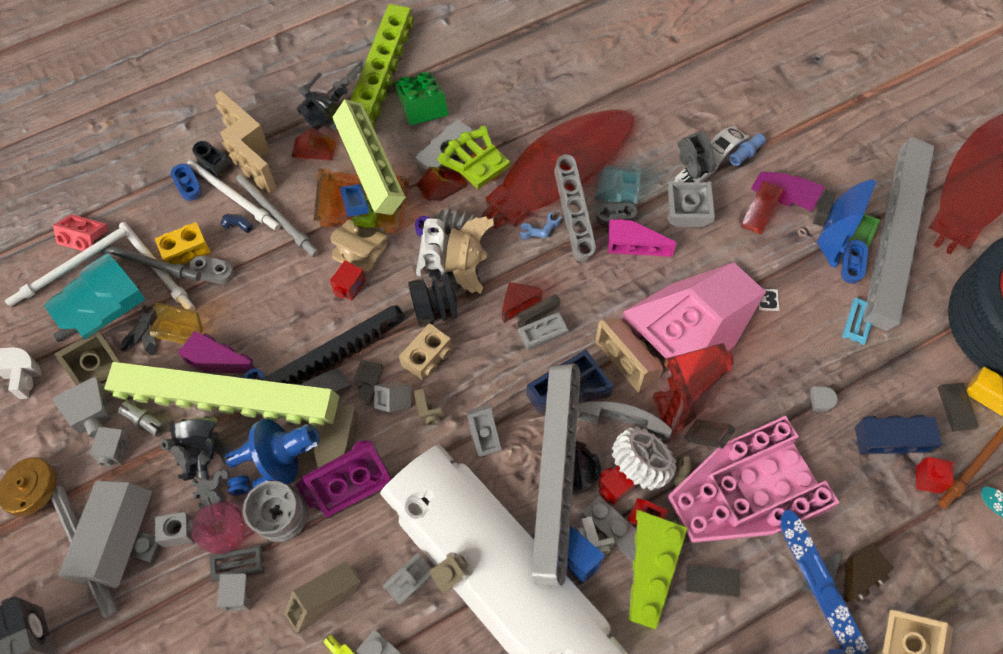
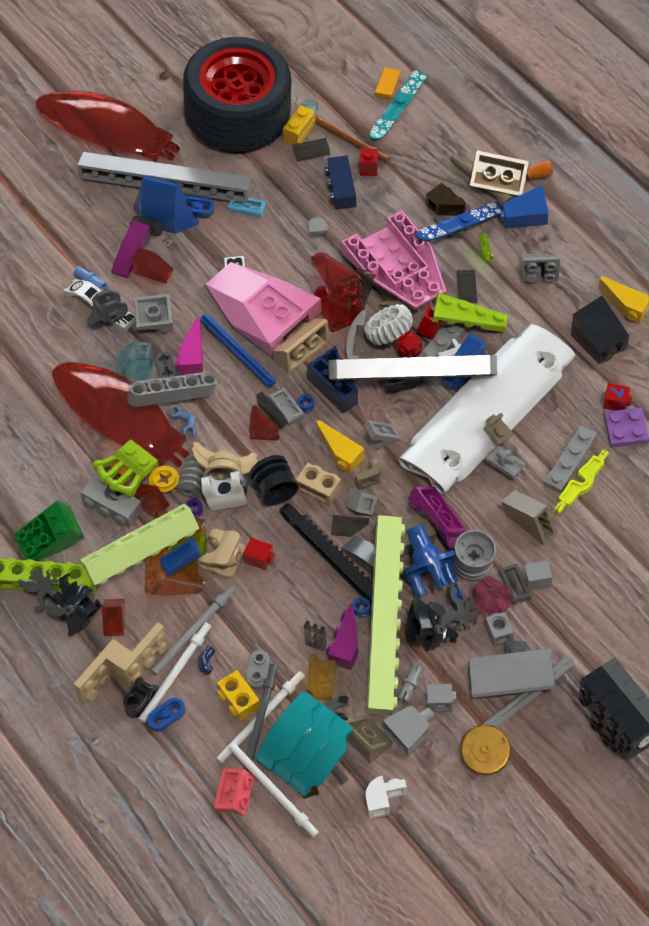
camera: 95 degrees left, 5 degrees down
(219, 332) = (319, 636): none -> clear smoke tile
(470, 194) = (167, 473): none -> yellow gear
(470, 381) = (343, 451): none -> yellow slope
(551, 350) = (306, 398): none -> blue bush
(632, 288) = (237, 350): none -> blue axle
(773, 616) = (485, 247): none -> clear neon green tile

